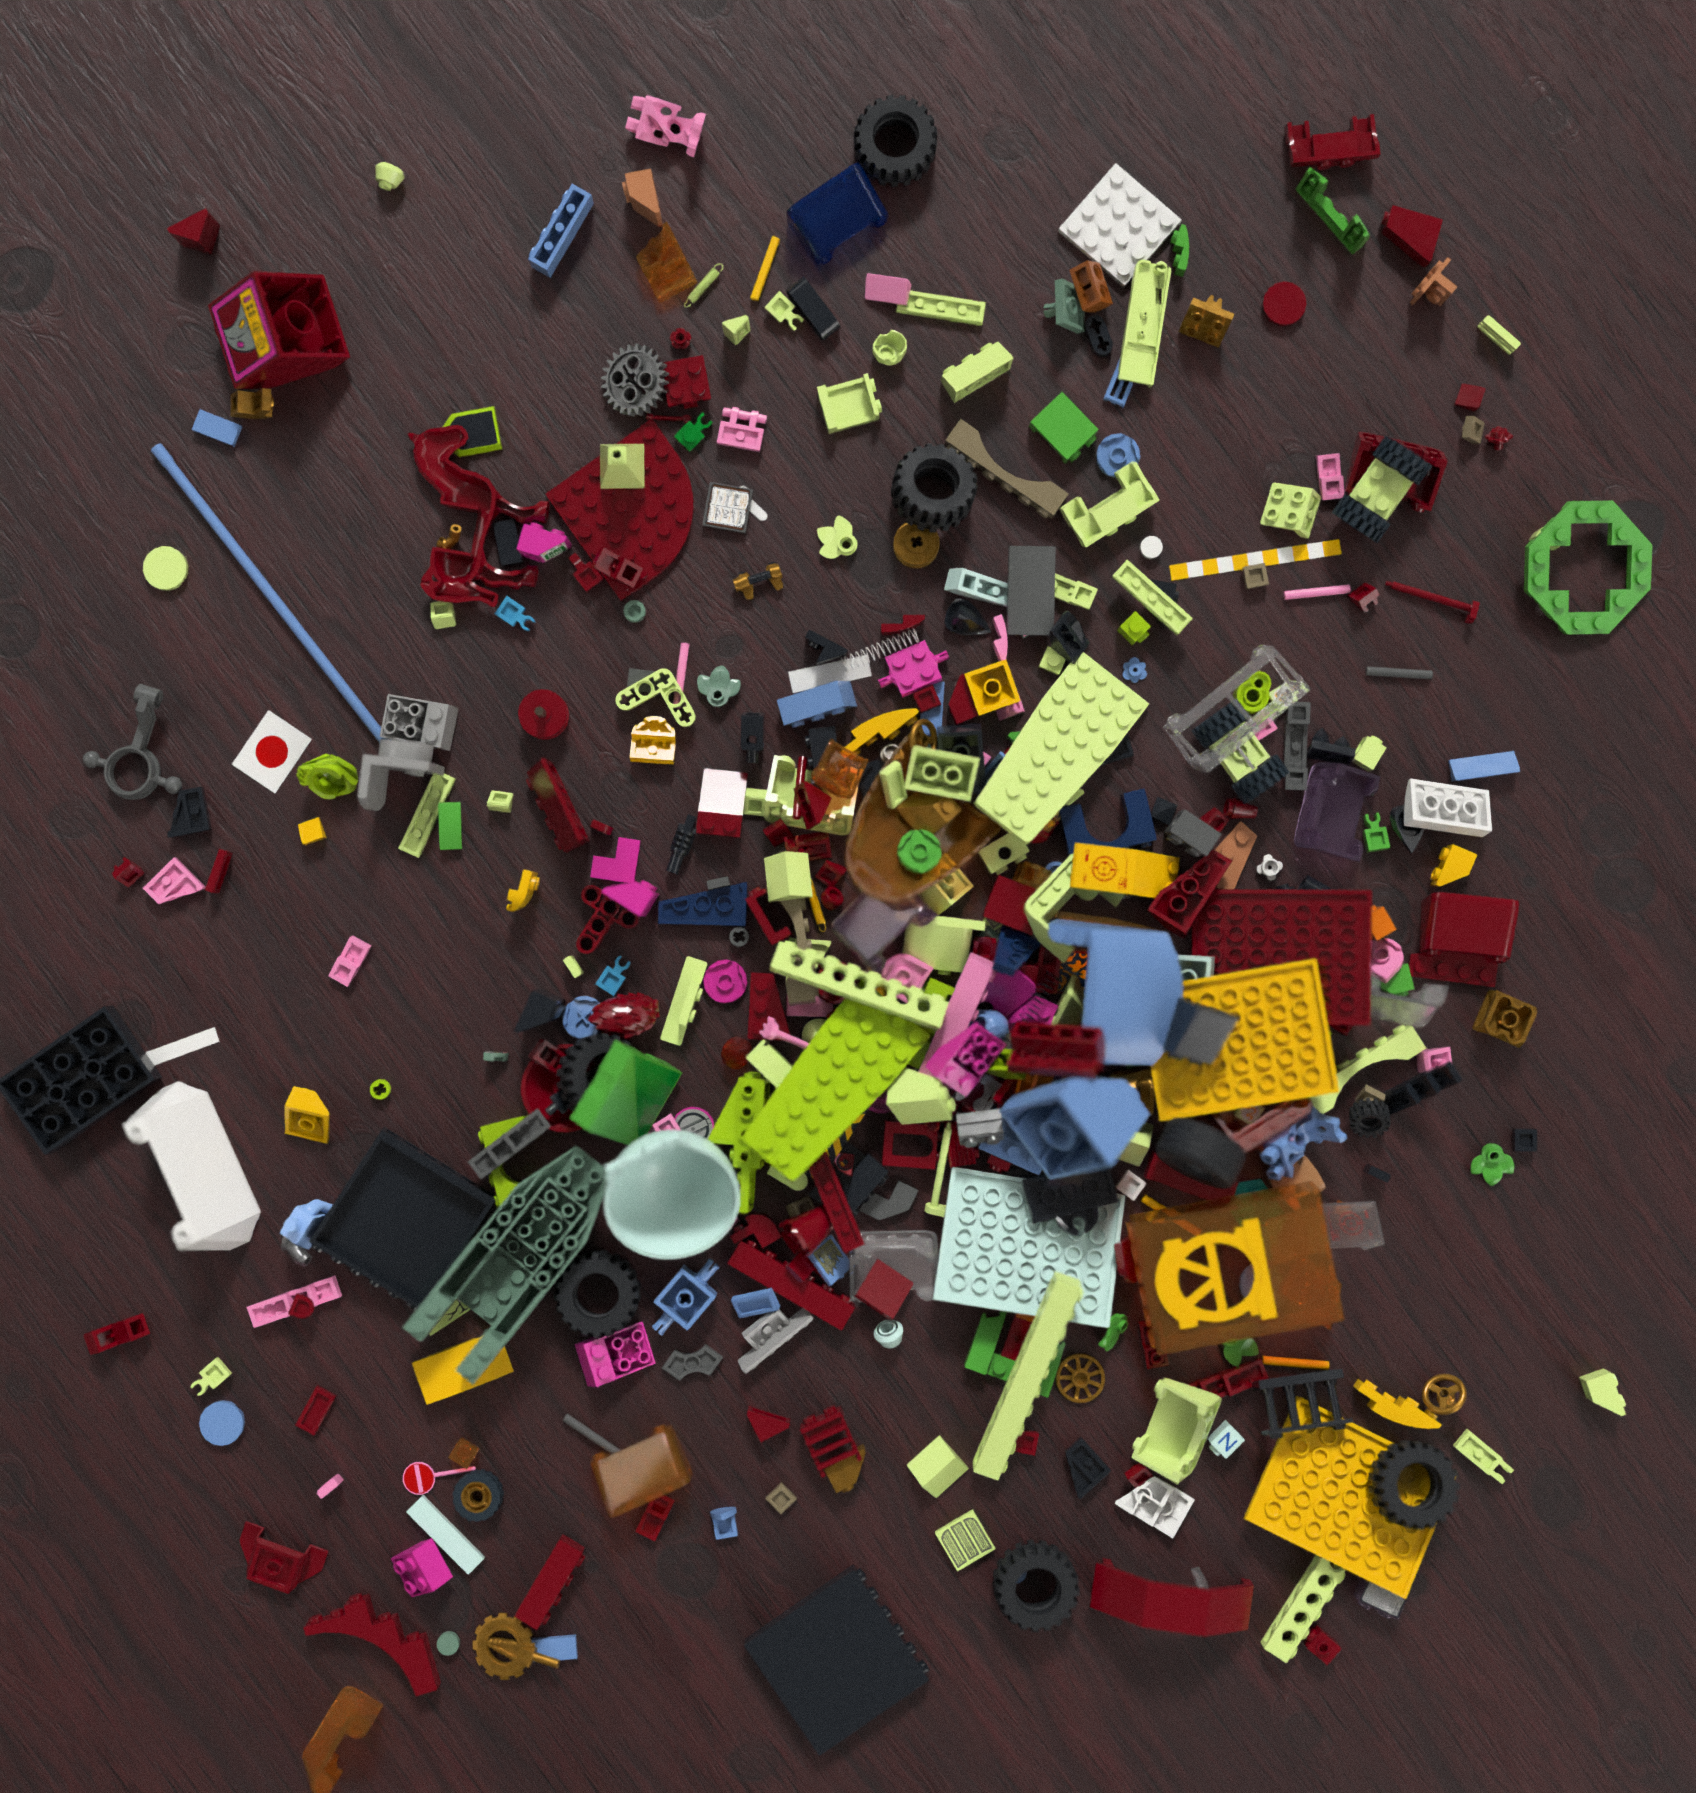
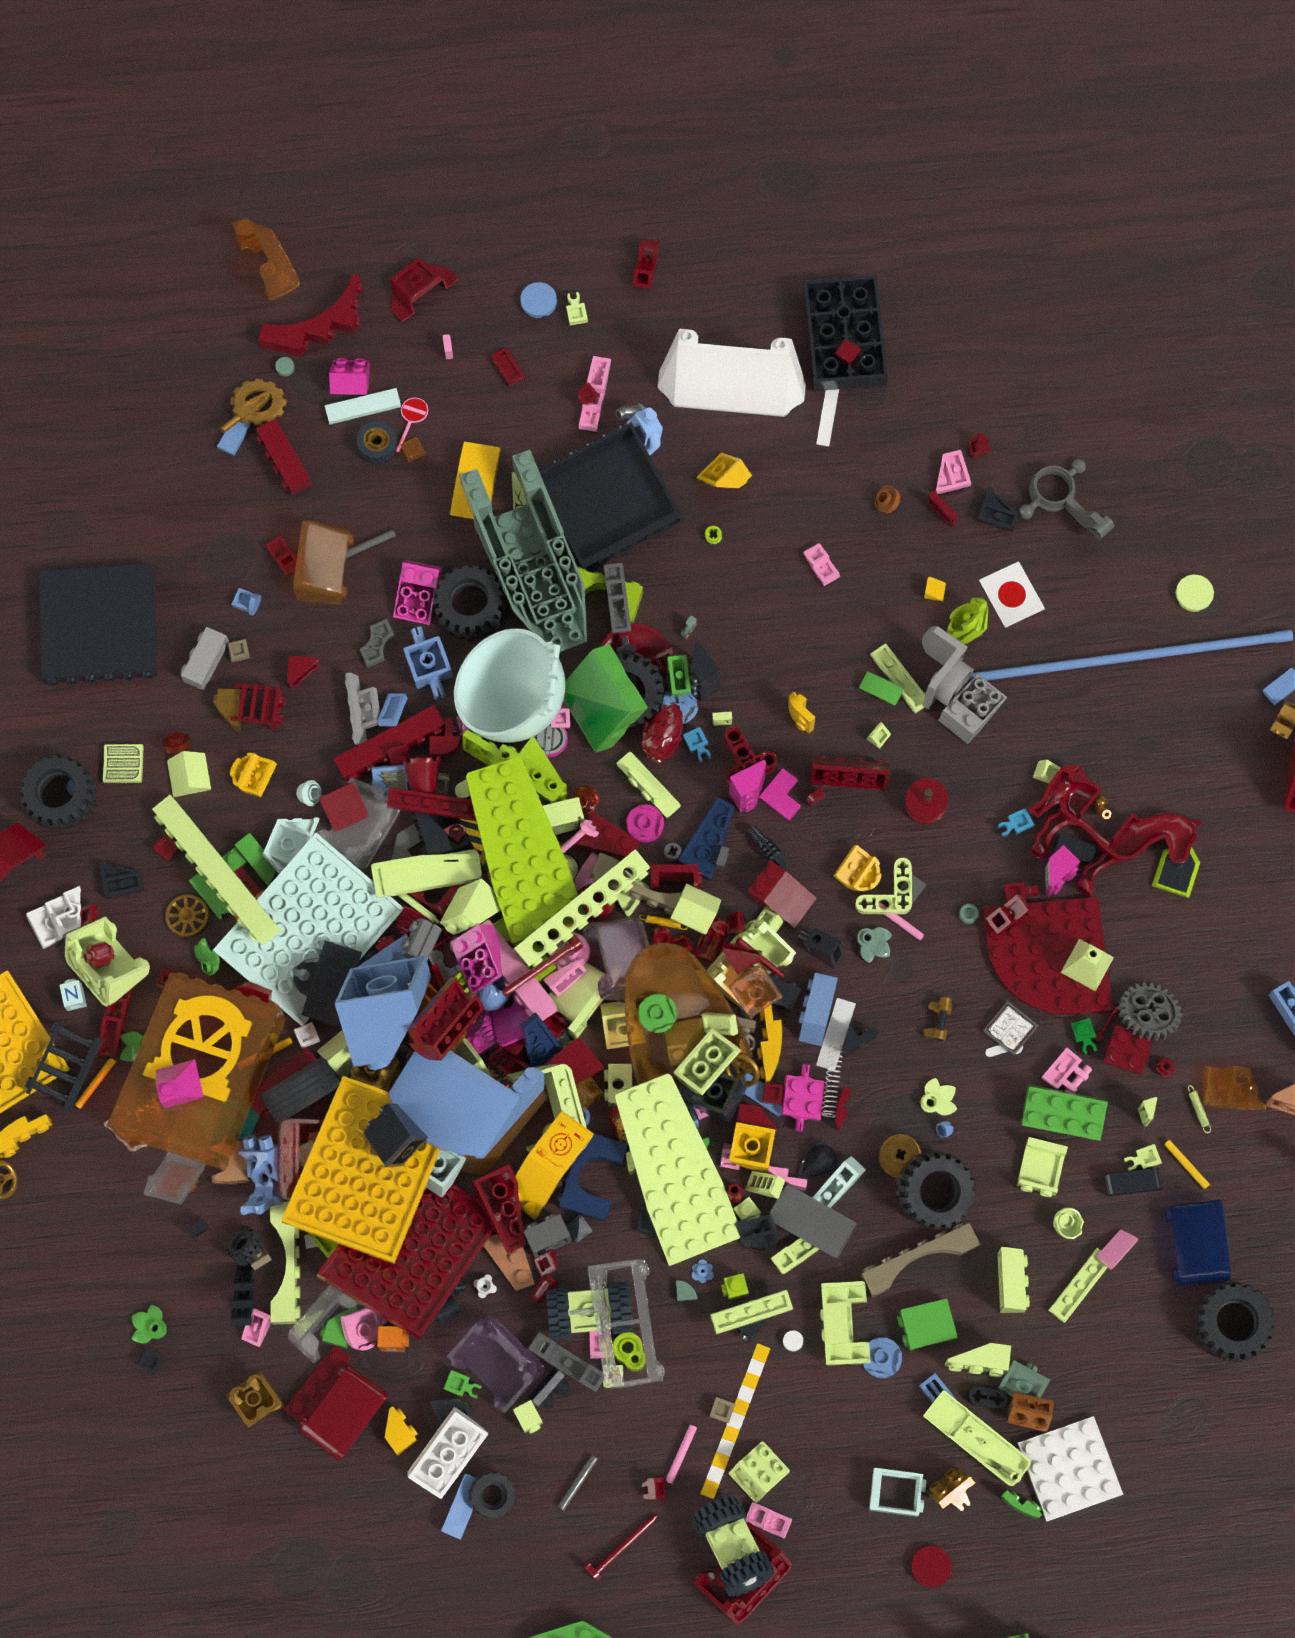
camera: 125 degrees right, 15 degrees down
(100, 1062) = (847, 352): none -> dark red tile
(241, 932) = (887, 499): none -> dark orange plate
(558, 1032) = (678, 676): none -> bright green slope
(784, 408) = (1064, 1112): none -> bright green brick
(810, 1527) = (204, 658): none -> light grey brick
(865, 516) = (944, 1125): none -> medium blue hinge
(876, 761) = (747, 1025): none -> dark tan plate
(898, 973) = (571, 946): none -> dark red piece
(901, 1403) = (252, 773): none -> yellow slope
(907, 1165) = (425, 873): none -> yellowish green piece
(914, 1499) = (176, 743): none -> clear red plate
(934, 963) = (565, 977): none -> bright pink slope
(950, 1322) = (287, 840): none -> light aqua wing
(1018, 642) = (775, 1188): none -> yellowish green slope
(1041, 687) = (735, 1198): none -> dark red cone
(1068, 357) = (987, 1358): none -> yellowish green slope
(1164, 674) = (685, 1291): none -> sand green tile
(1174, 1438) = (99, 954): none -> dark red head
(1247, 391) = (875, 1492): none -> light aqua window
(1268, 1275) = (179, 1084): none -> dark pink slope
(1466, 728) = (507, 1495): none -> black tyre

